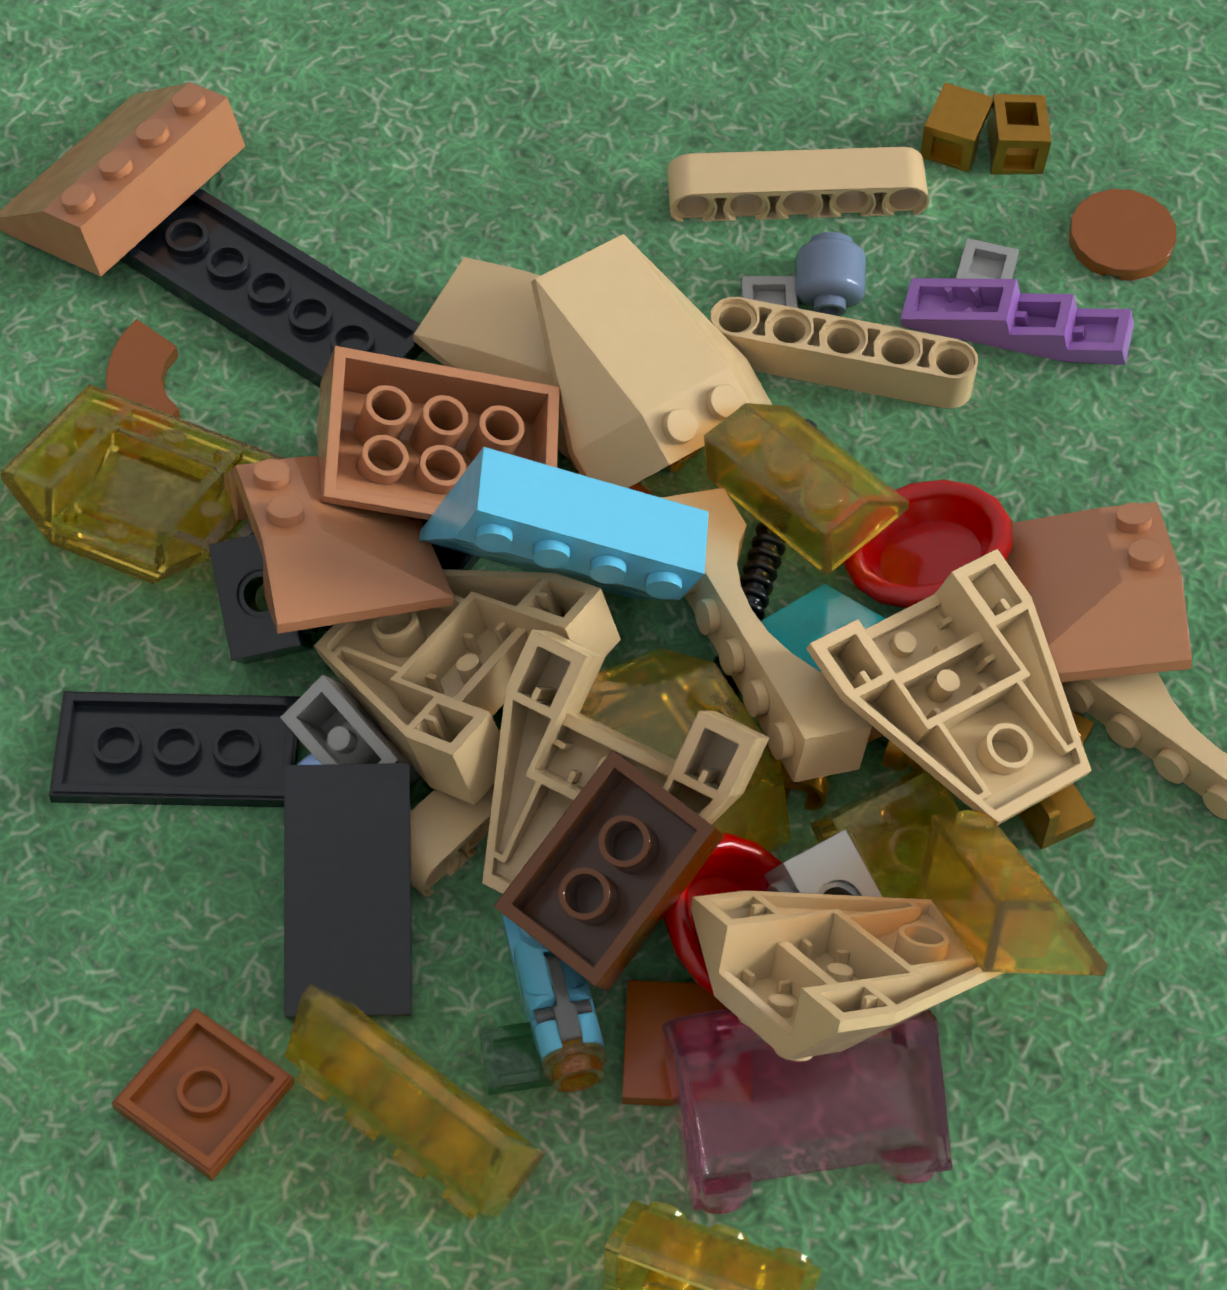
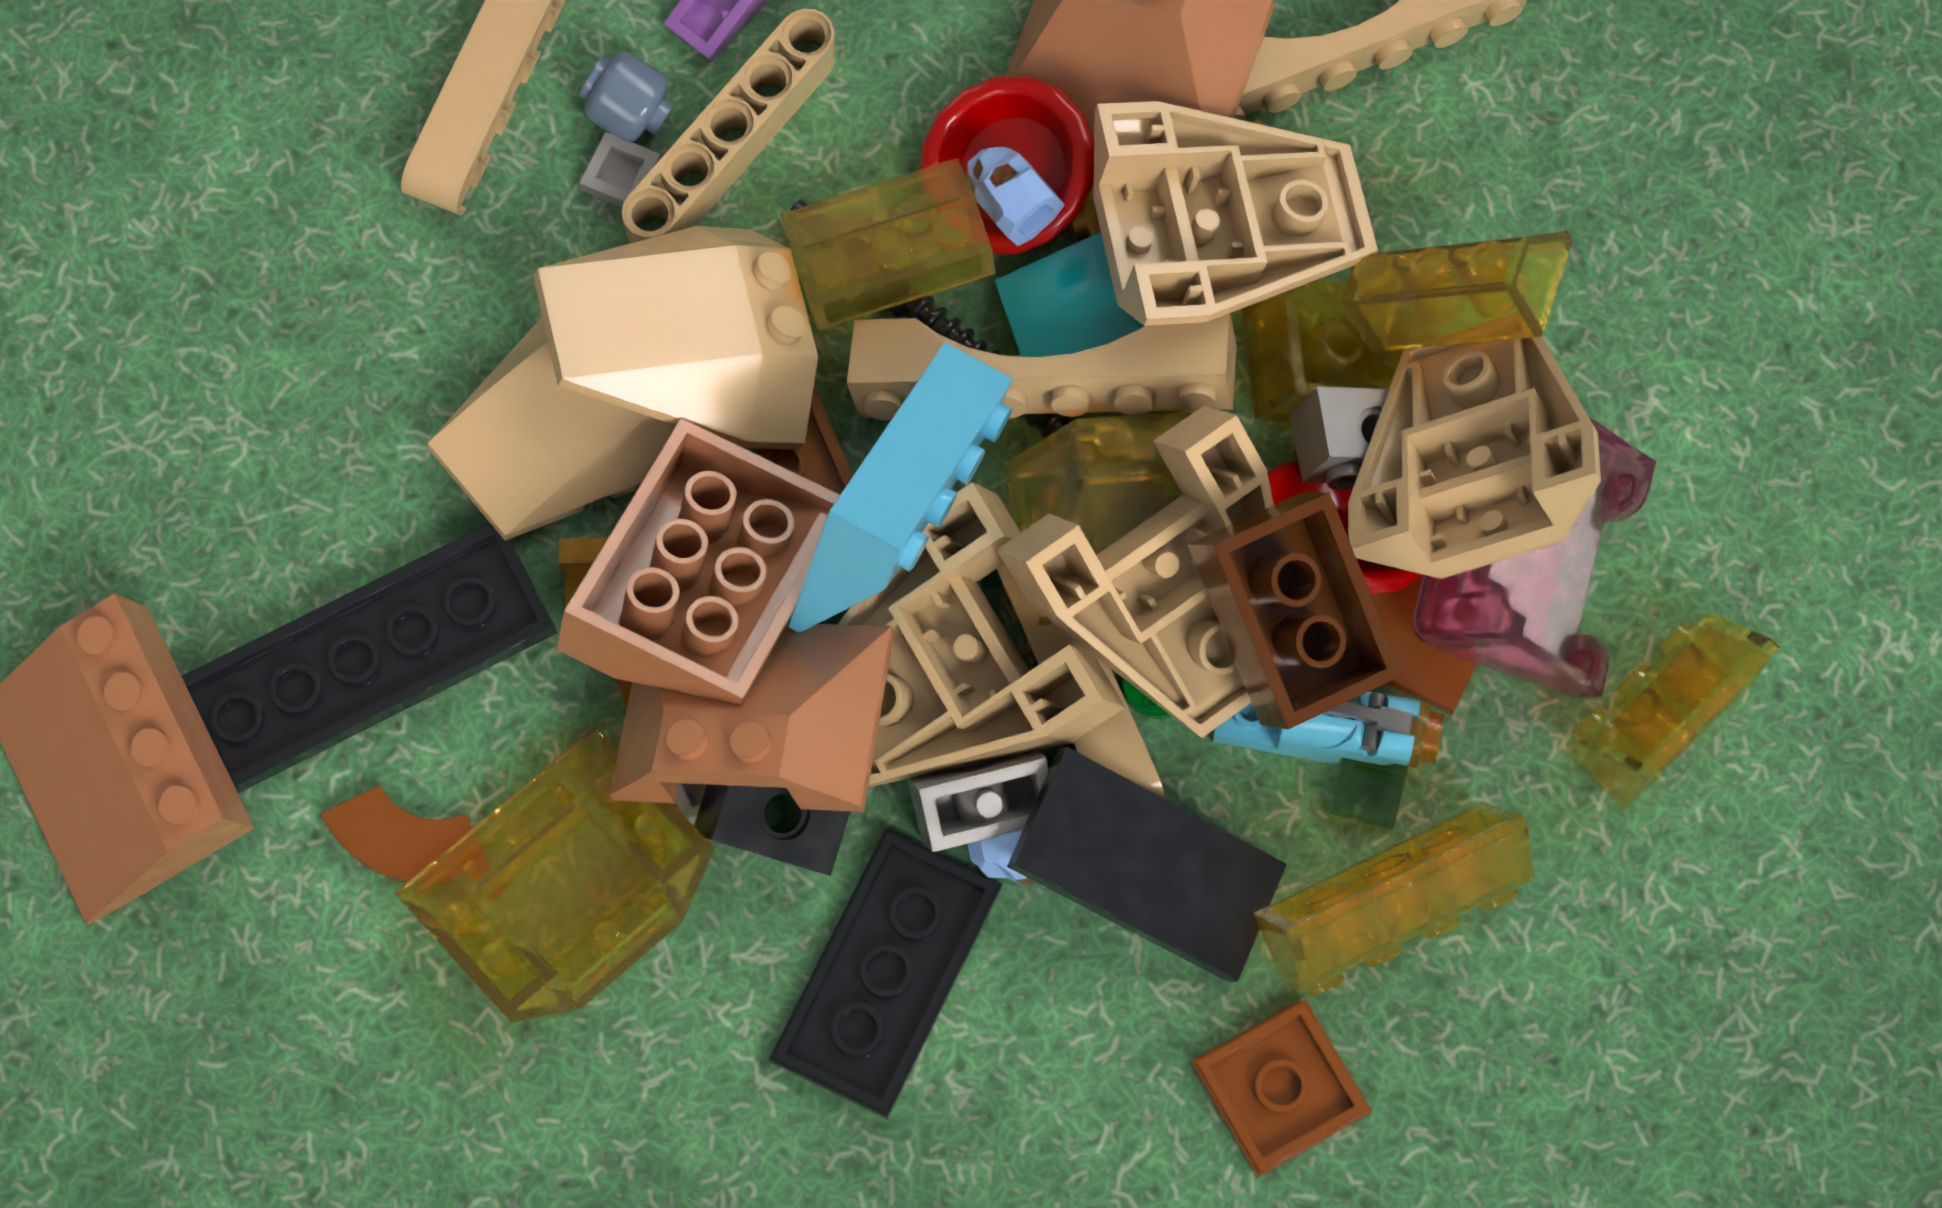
camera: 65 degrees left, 15 degrees up
(893, 546) = (1012, 193): none -> light blue rock

